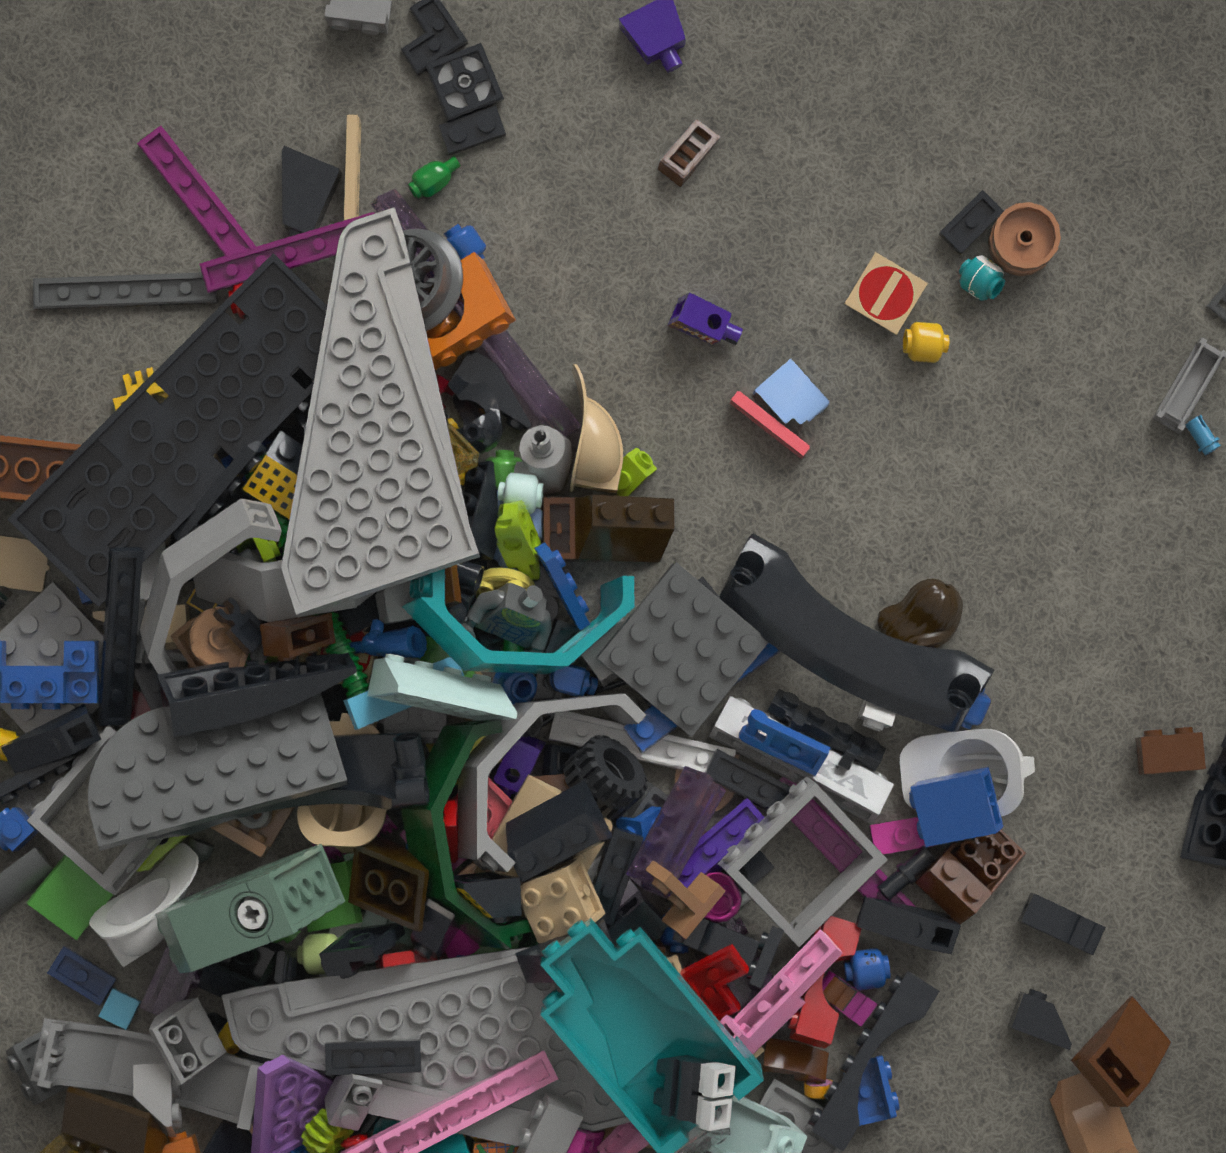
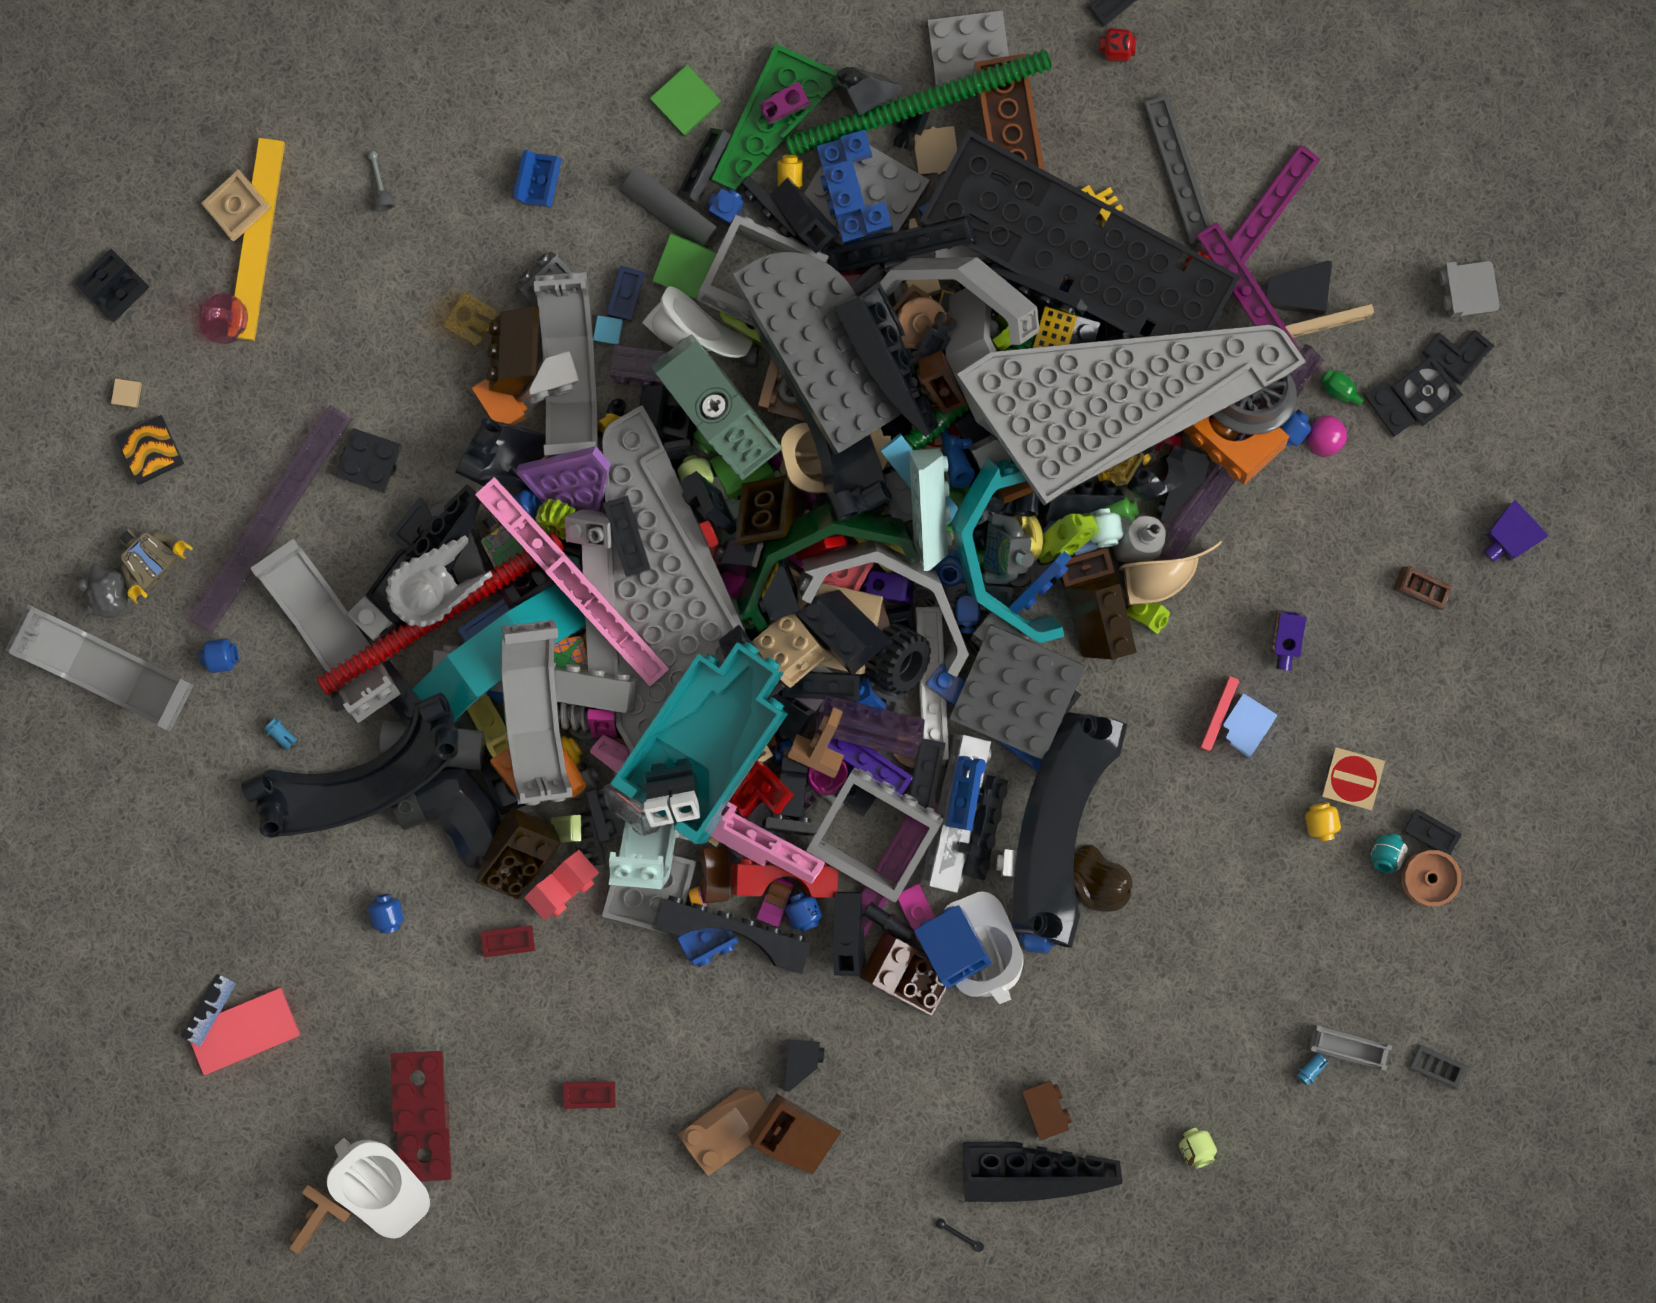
camera: 80 degrees right, 0 degrees up
(186, 1039) = (600, 387): light grey slope -> none
(484, 210) = (1326, 436): none -> dark pink hair
(1061, 923) = (883, 1060): black piece -> none

